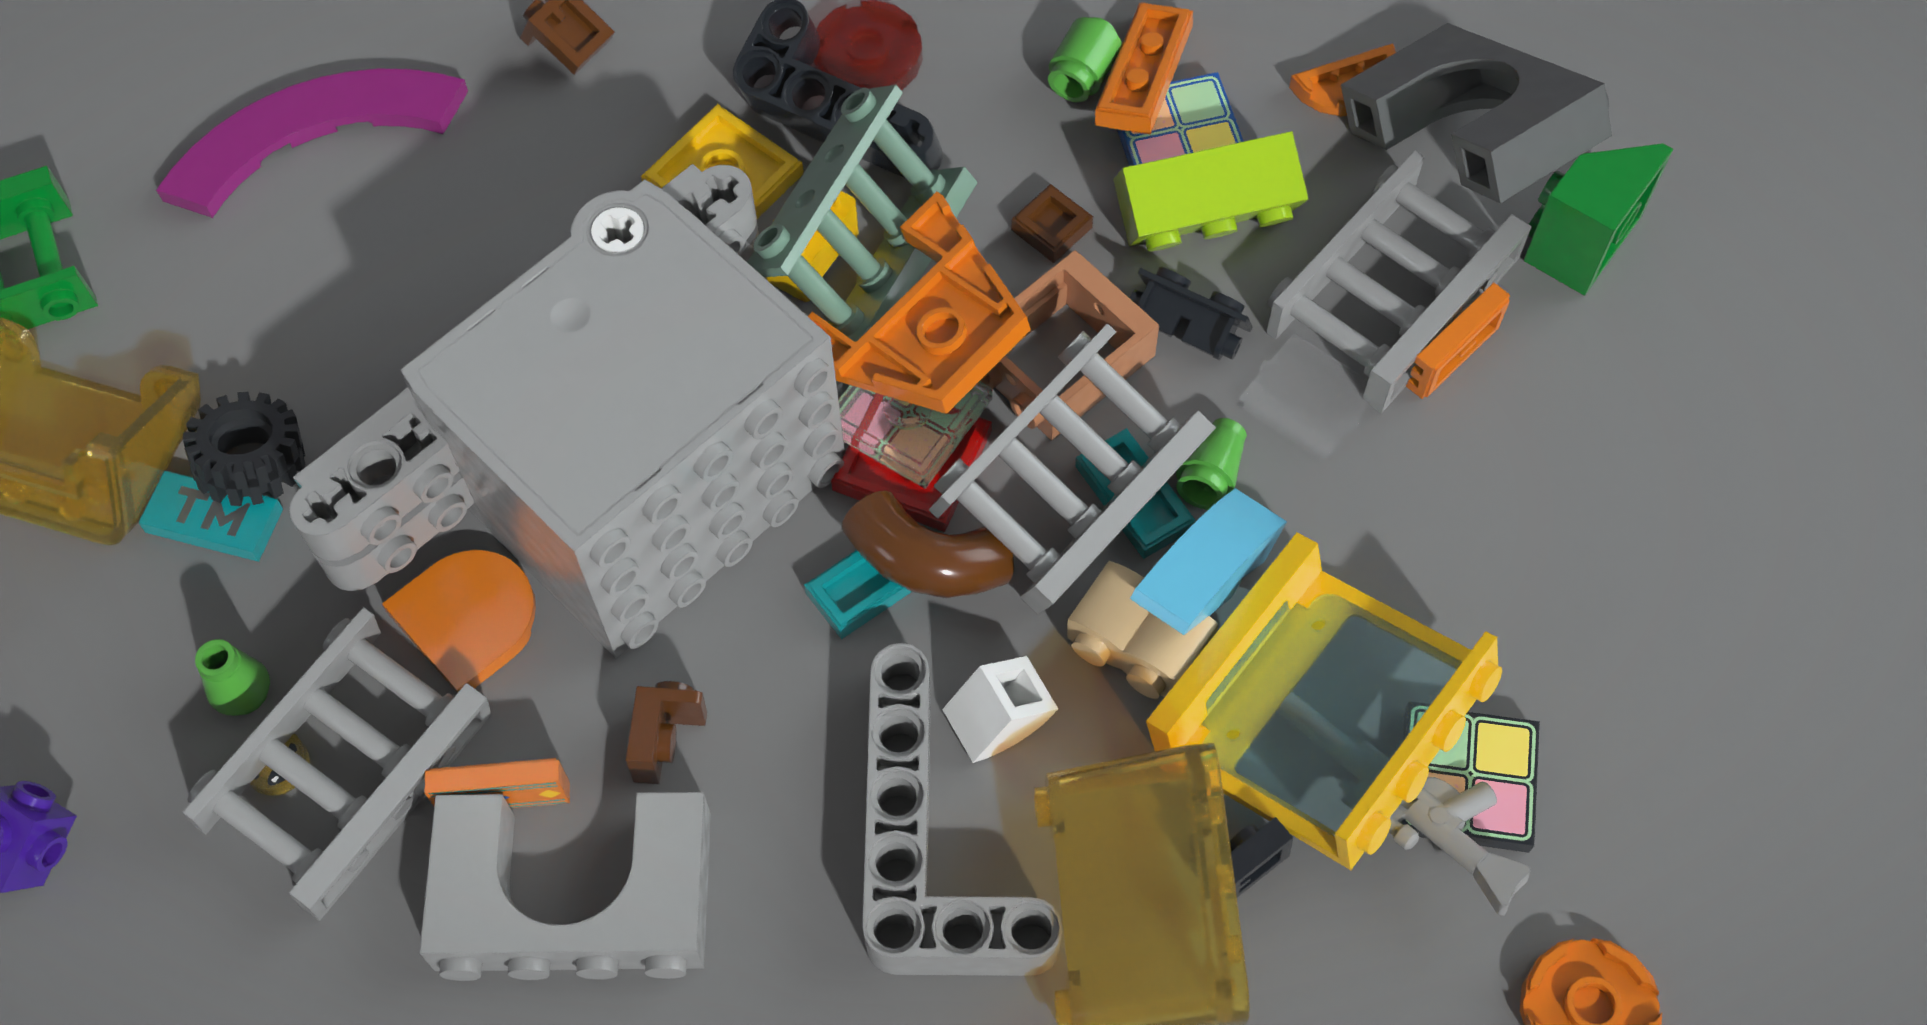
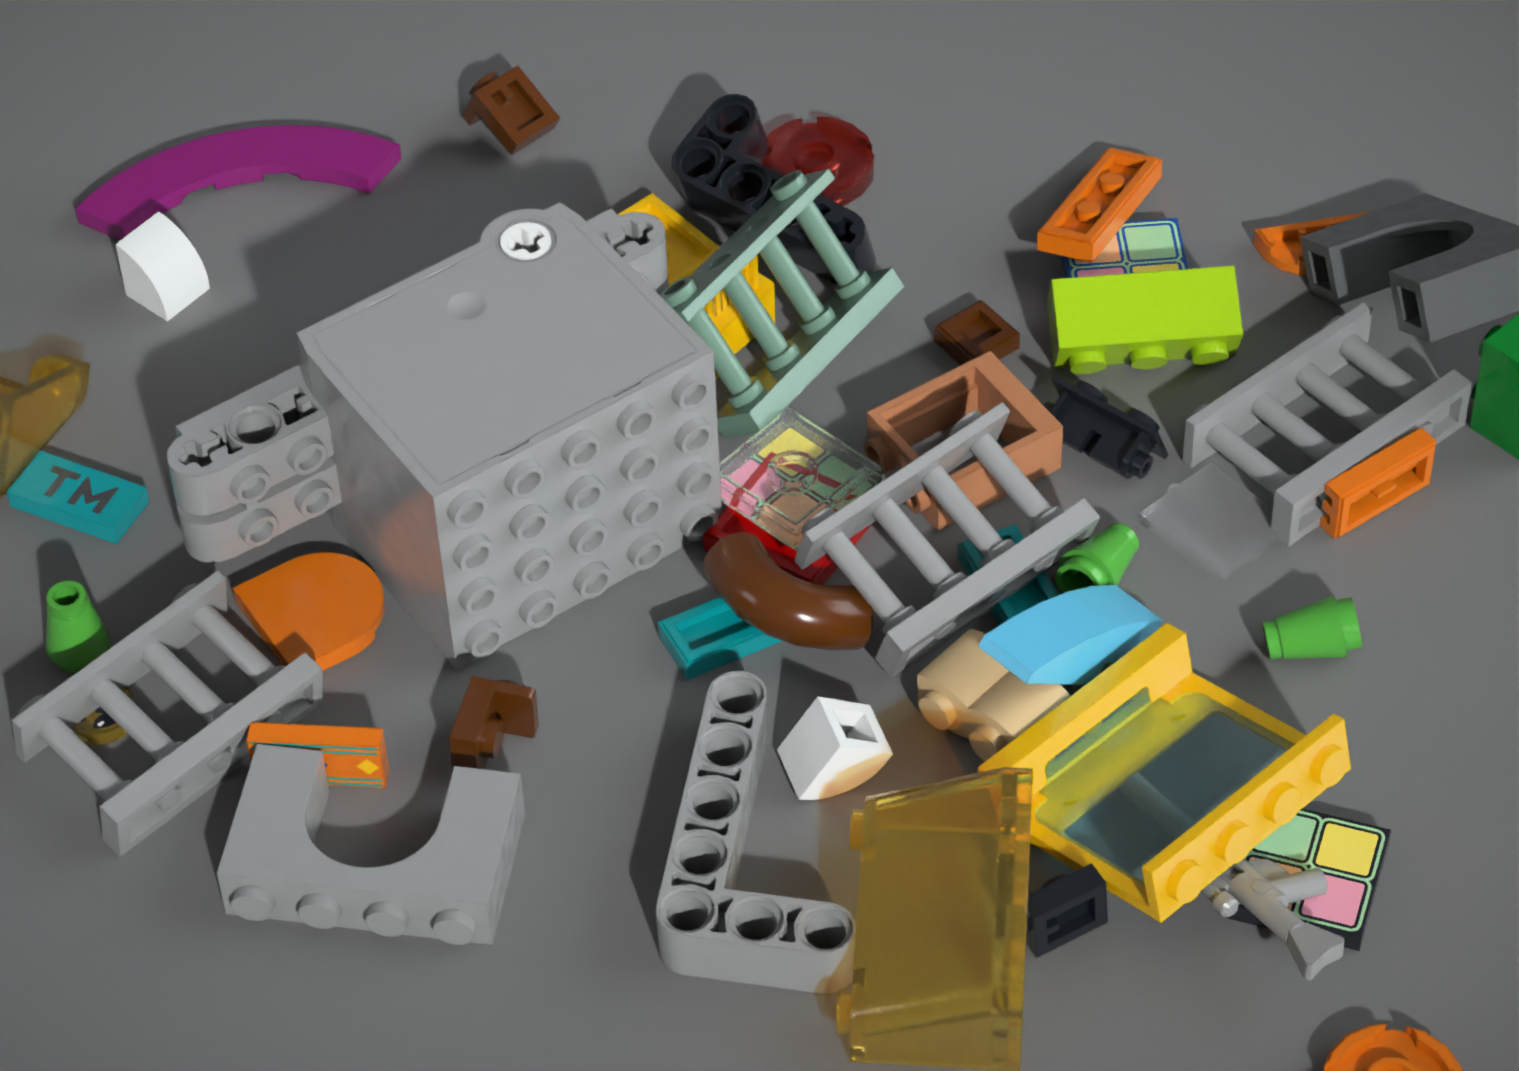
camera: 10 degrees right, 15 degrees down
(239, 424) = (121, 436): black tyre -> none
(252, 249) = (161, 267): none -> white brick
(942, 329) = (836, 401): orange wing -> none
(1083, 58) = (1037, 190): bright green brick -> none
(1429, 510) = (1314, 631): none -> bright green cone

